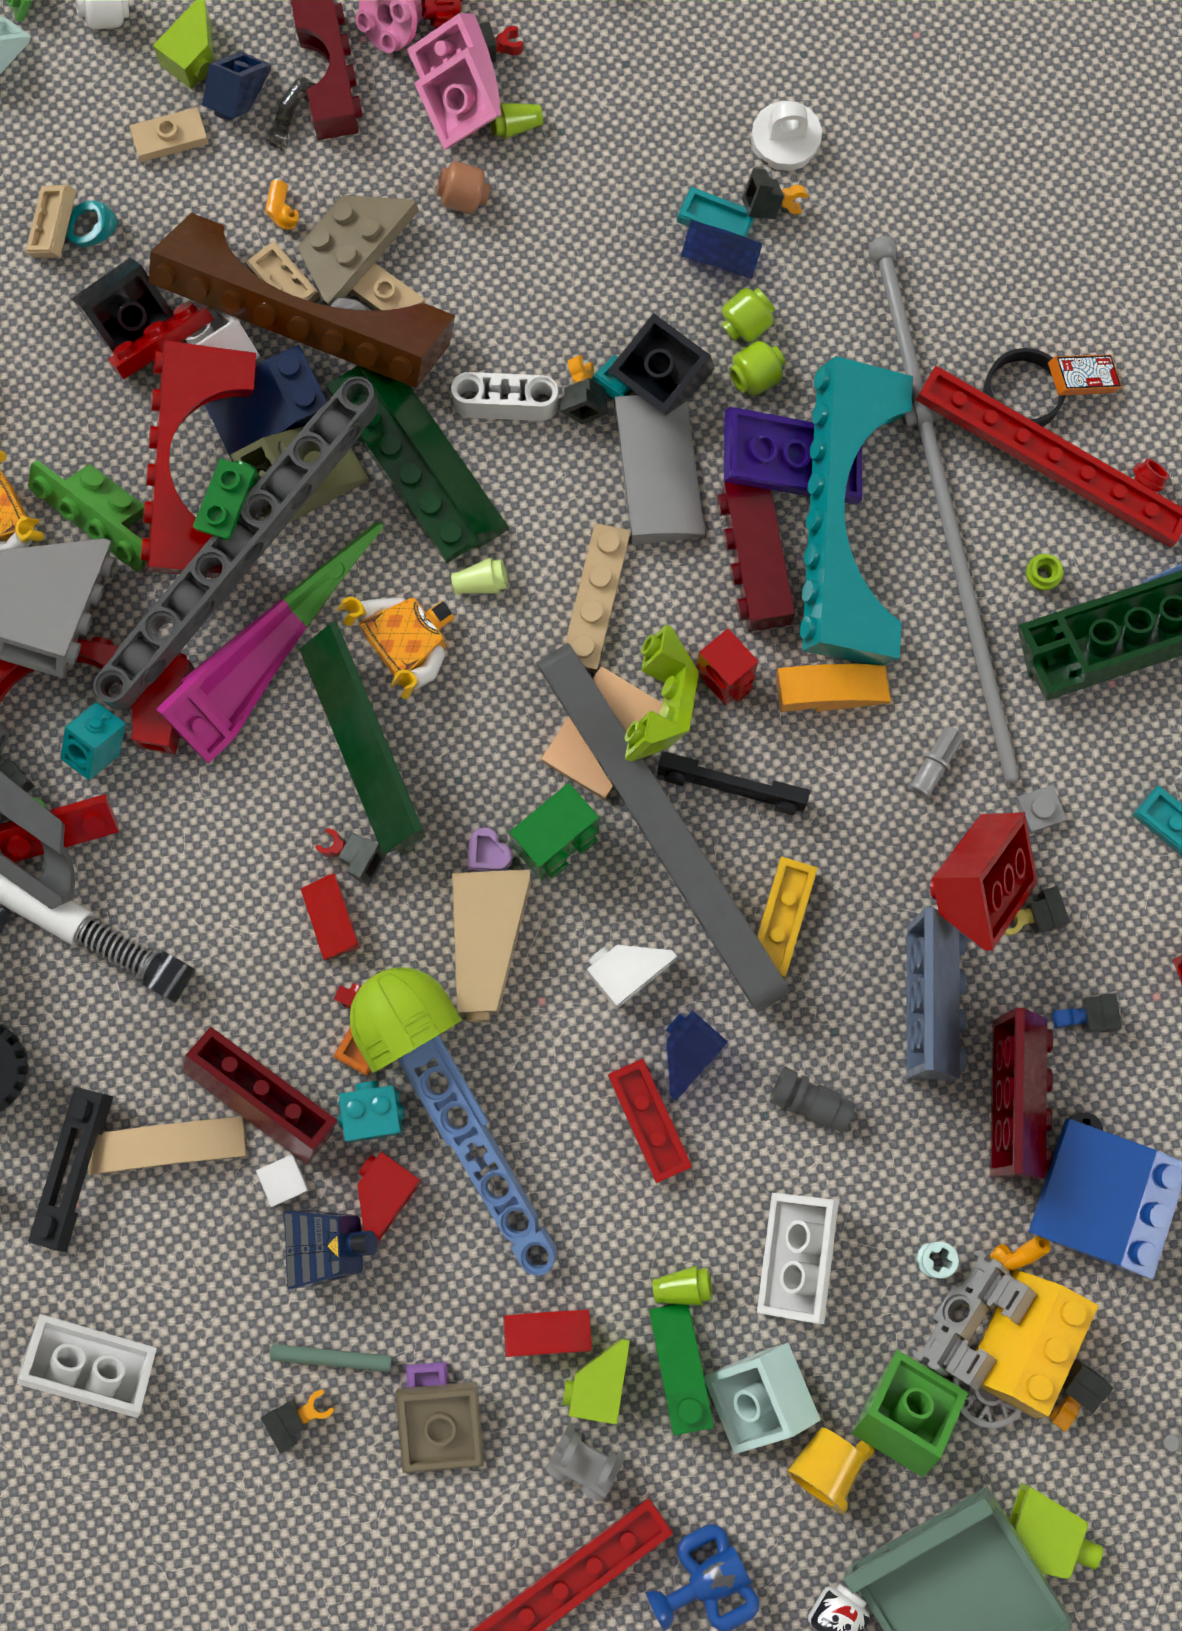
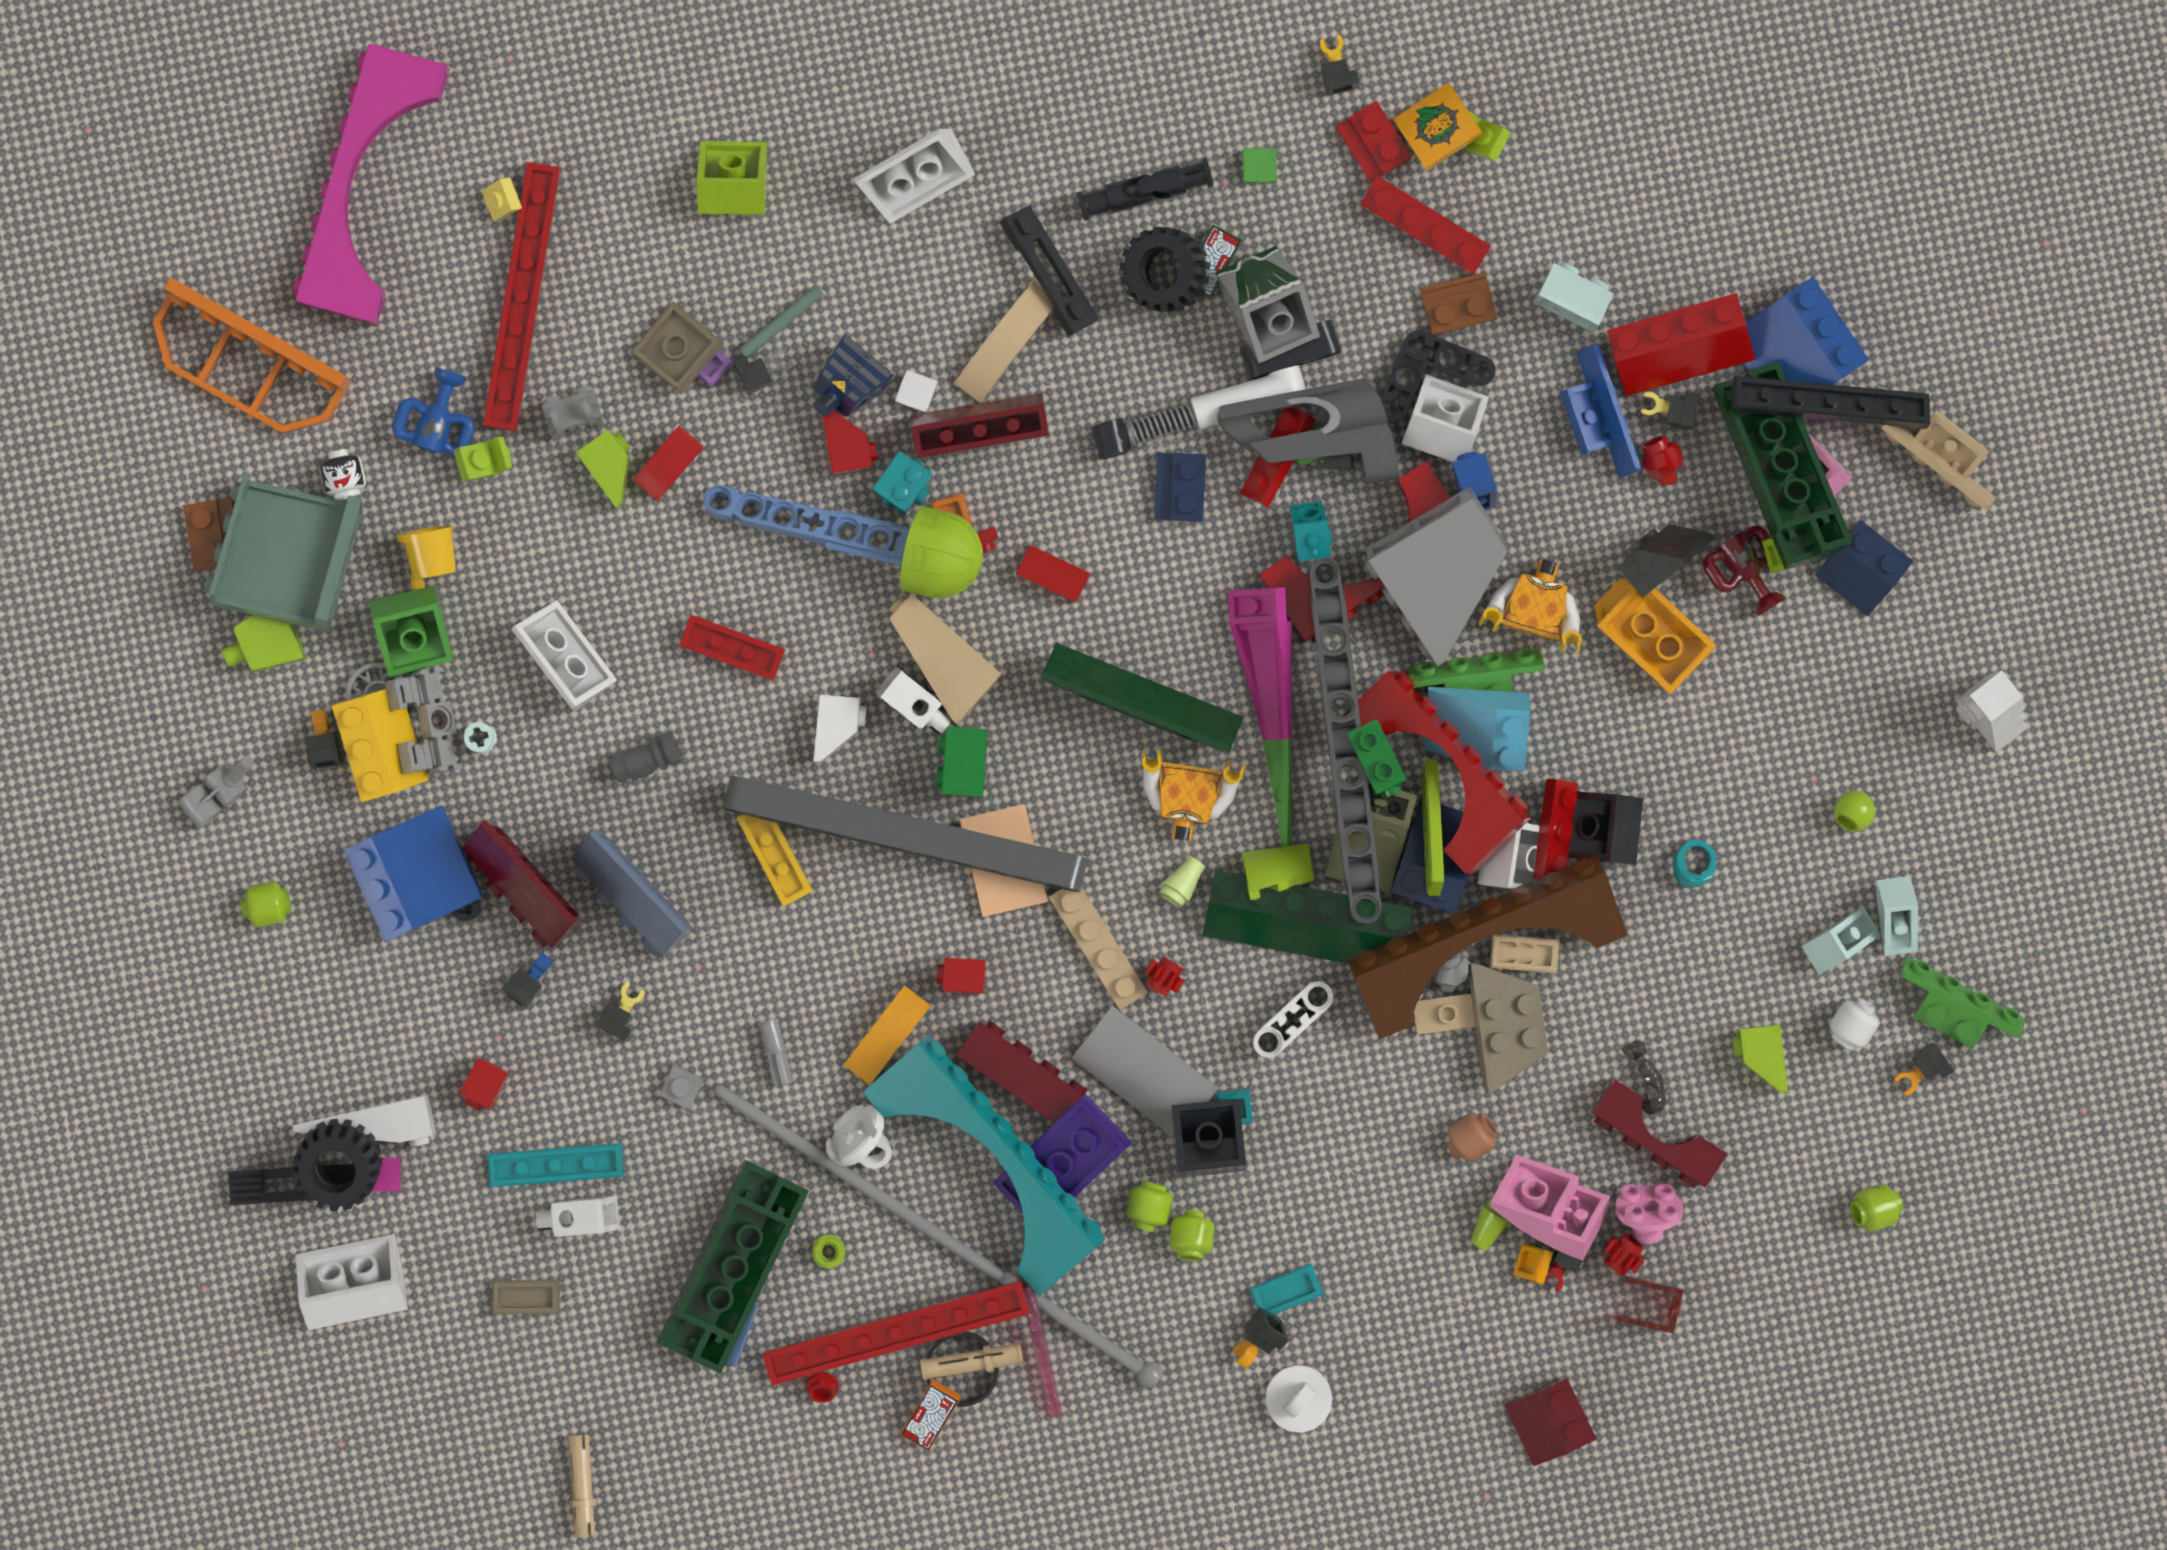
camera: 135 degrees right, 10 degrees up
(48, 67) = (1841, 940): none -> light aqua slope
(50, 221) = (1719, 838): tan plate -> none
(115, 456) = (1488, 721): none -> medium azure slope
(158, 885) = (1180, 487): none -> dark blue plate
(169, 134) = (1712, 979): tan plate -> none
(234, 84) = (1702, 1059): dark blue slope -> none
(242, 1529) = (732, 178): none -> lime slope
(247, 417) = (1432, 827): none -> lime tile
(276, 207) = (1581, 1000): light orange arm -> none
(289, 1420) = (768, 261): pearl dark grey piece -> none
(359, 854) = (1075, 629): pearl dark grey piece -> none
(396, 1333) = (756, 373): none -> pearl dark grey piece
(398, 512) = (1277, 868): none -> lime slope
(487, 852) = (997, 711): lavender tile -> none
(513, 62) = (1532, 1263): none -> light orange tile
(547, 926) = (901, 694): none -> white torso
(569, 520) = (1164, 976): none -> red gear
(585, 398) = (1240, 1068): pearl dark grey piece -> none
(671, 664) = (1008, 946): lime slope -> none
(680, 1369) = (570, 522): green slope -> none
(685, 1287) = (614, 571): lime cone -> none
(689, 1051) = (749, 712): clear blue slope -> none
(702, 1502) = (483, 459): none -> lime bracket
(721, 249) = (1255, 1264): clear blue slope -> none
(762, 1399) = (505, 552): light aqua slope -> none
(784, 796) = (930, 883): black container -> none
(938, 629) = (856, 1136): none -> white tile
(953, 337) = (1042, 1354): none -> clear pink piece
(978, 352) = (972, 1361): none -> tan pin
(986, 878) = (670, 995): red slope -> none
(1023, 1255) = (432, 789): light orange arm -> none

